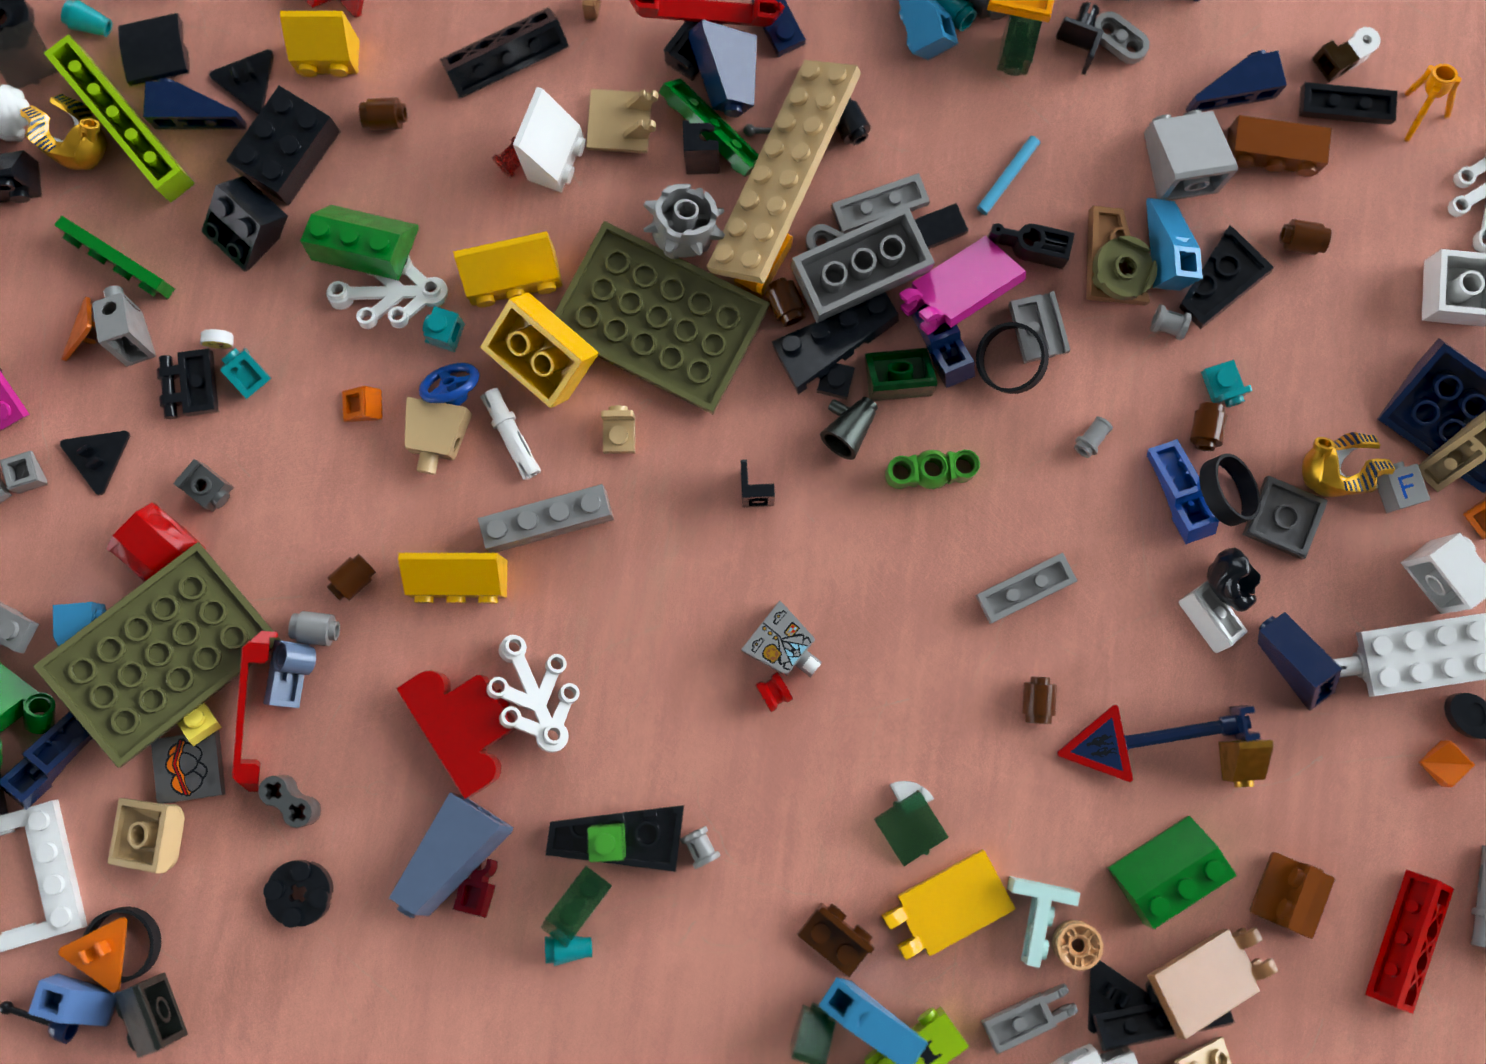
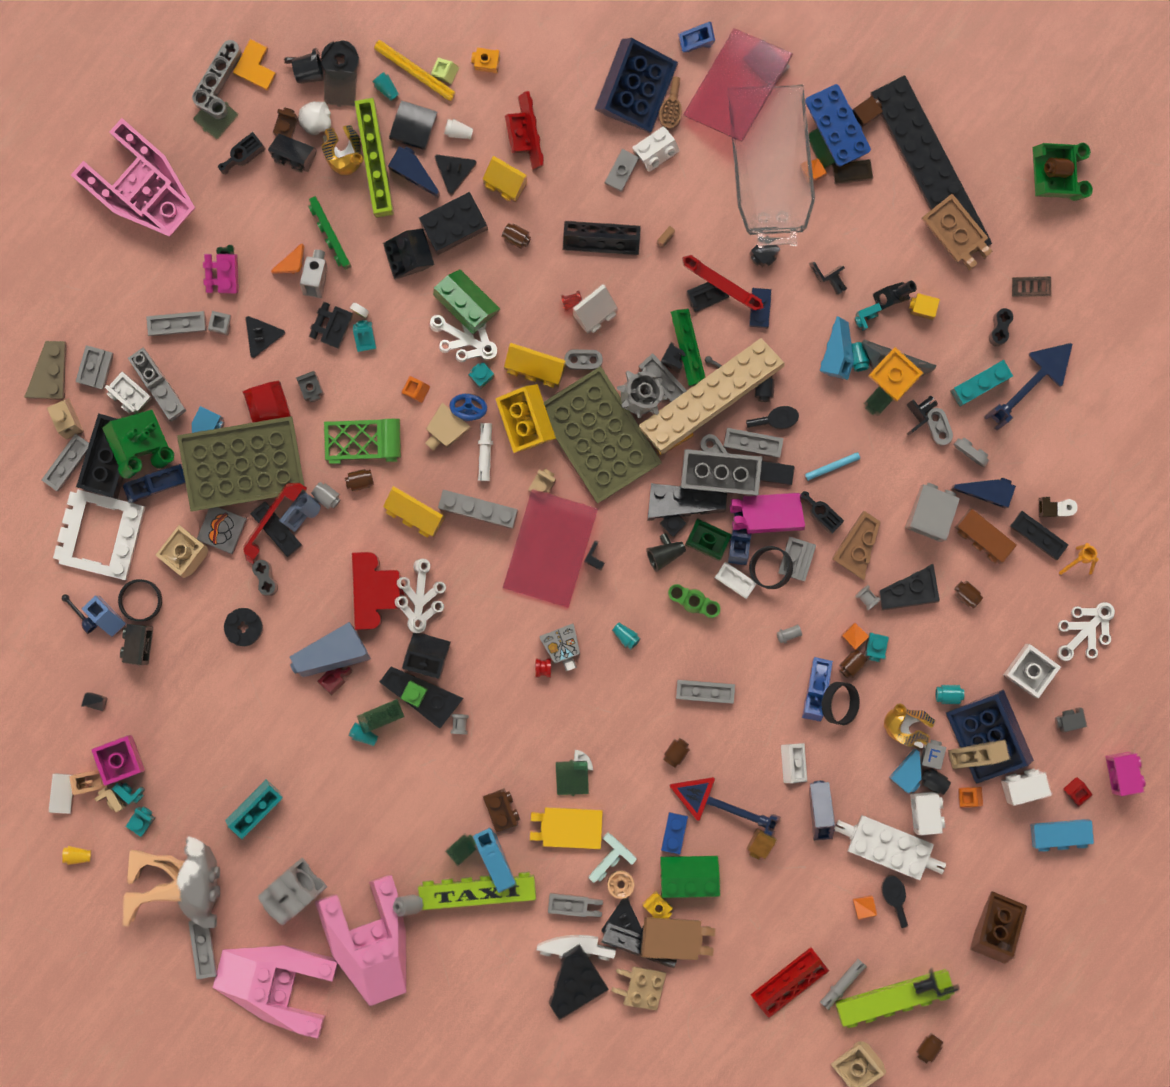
camera: 30 degrees right, 5 degrees up
(100, 954) = (128, 599): orange piece -> none
(199, 724) = (240, 511): light yellow plate -> none
(219, 20) = (457, 129): none -> white cone
(272, 721) = (277, 530): none -> black tile
(360, 497) = (387, 440): none -> bright green piece
(573, 225) = (583, 359): none -> light grey plate
(592, 774) = (426, 655): none -> black slope
(620, 120) = (641, 313): tan plate -> none
(682, 514) = (550, 548): none -> clear pink piece
(722, 191) = (671, 386): none -> light grey plate
(726, 65) = (715, 320): slope -> none
(785, 302) = (671, 466): reddish brown brick -> none
(865, 575) = (627, 636): none -> teal cone
(894, 152) = (778, 418): none -> black piece
(972, 406) = (735, 580): none -> white plate
(1107, 820) = (674, 833): none -> blue plate
(1110, 278) = (848, 552): olive plate -> none
(1140, 943) = (654, 900): none -> yellow brick
(1172, 246) = (893, 557): dark azure slope -> none
(1186, 46) = (966, 448): none -> light grey plate
(1186, 387) = (854, 636): none -> orange slope
(1233, 579) = (814, 750): black hair -> none
(1286, 517) = (864, 734): flat silver tile -> none
(1292, 894) = (744, 925): dark orange bracket -> none
(1369, 389) = (949, 694): none -> teal brick
(1383, 531) = (908, 772): none -> dark azure slope
(1429, 522) = (935, 781): none -> black brick

